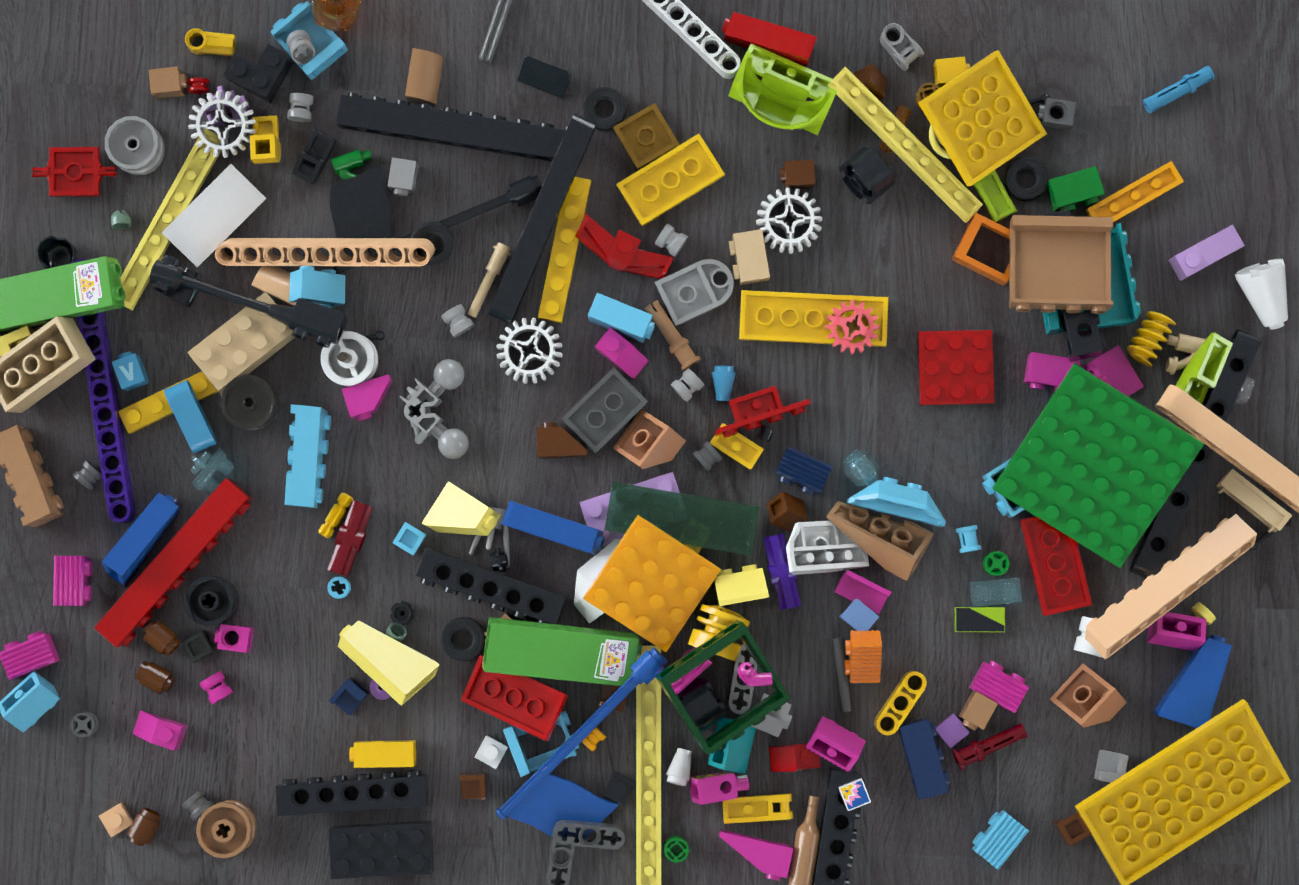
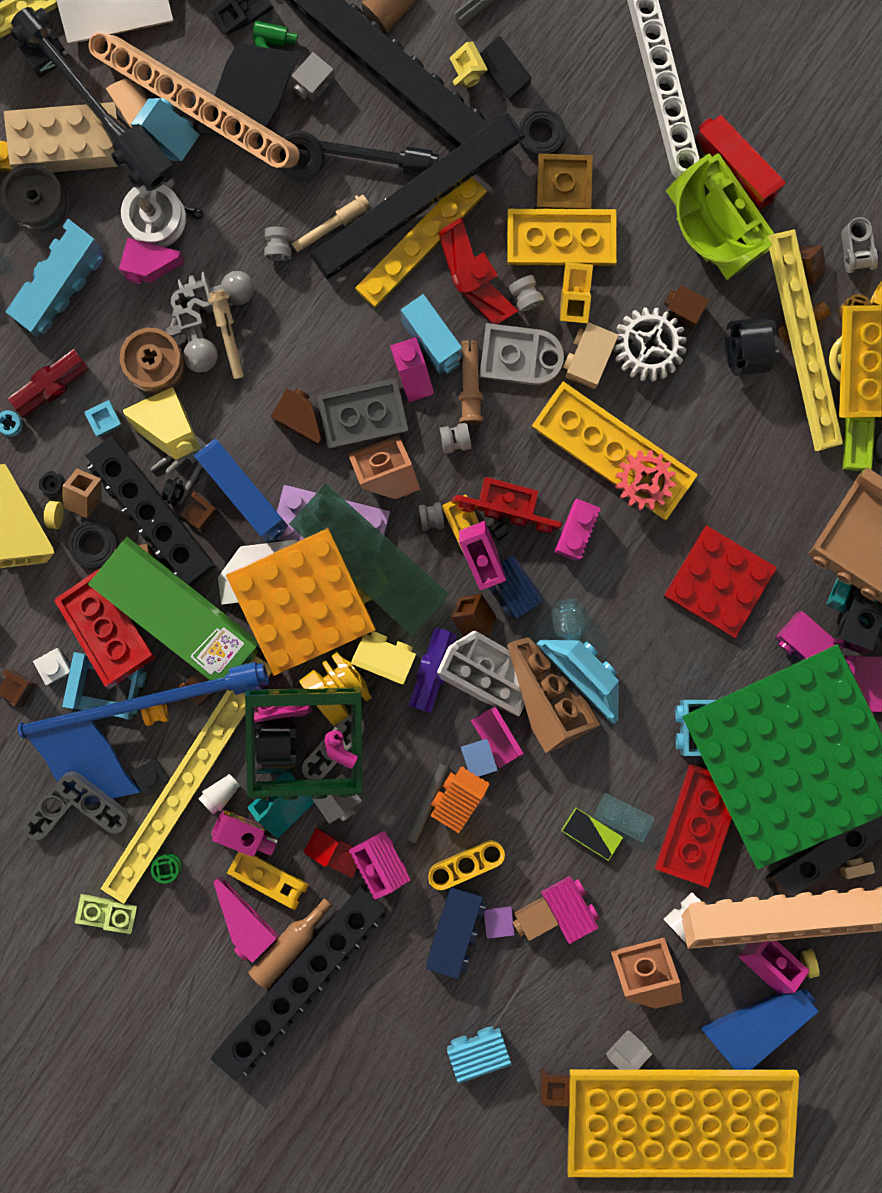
camera: 25 degrees right, 0 degrees up
(335, 515) = (48, 354): yellow axle -> none
(396, 631) = (35, 498): sand green hinge -> none
(405, 471) = (148, 345): none -> medium nougat wheel
(419, 636) = (53, 515): none -> light yellow tile
(431, 605) = (82, 493): none -> medium nougat brick
(455, 405) = (224, 319): none -> tan pin
(516, 92) = (468, 65): none -> light yellow bracket
(524, 361) = (315, 293): white gear -> none
(528, 564) = (199, 512): none -> reddish brown panel
(709, 217) = (576, 293): none -> yellow brick
(723, 381) = (491, 457): dark azure cone -> none
(765, 462) = (481, 555): none -> dark pink slope
(824, 397) = (577, 530): none -> dark pink brick
(854, 794) = (366, 924): tile -> none
(966, 241) = (798, 494): orange window -> none
(968, 539) = (629, 750): medium azure bush -> none
(978, 750) = (511, 958): dark red pin -> none
(999, 565) = (645, 790): green wheel -> none
(1193, 519) = (856, 867): none -> tan plate

